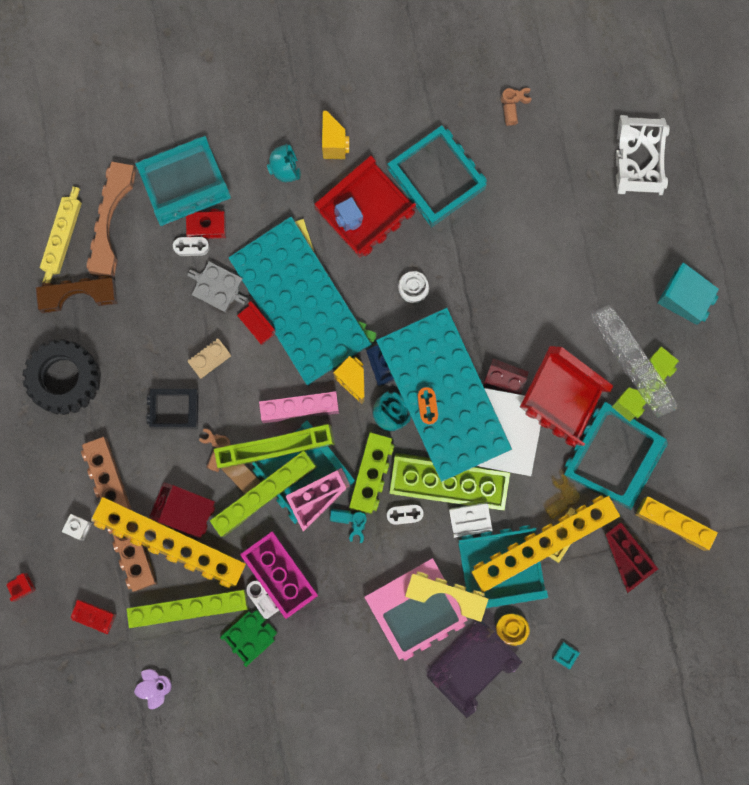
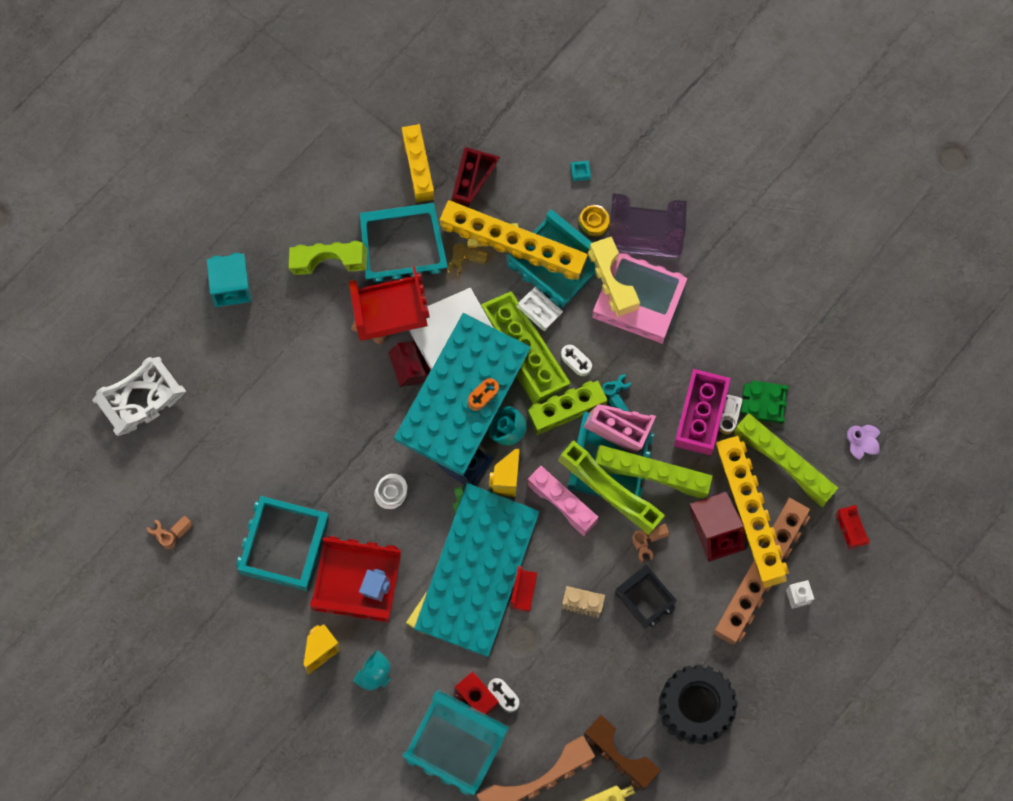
camera: 130 degrees left, 10 degrees down
(20, 587) = (882, 601): red panel -> none
(217, 287) = (519, 646): light grey plate -> none
(242, 477) = (654, 494): medium nougat slope -> none
(639, 371) = (323, 262): clear beam -> none

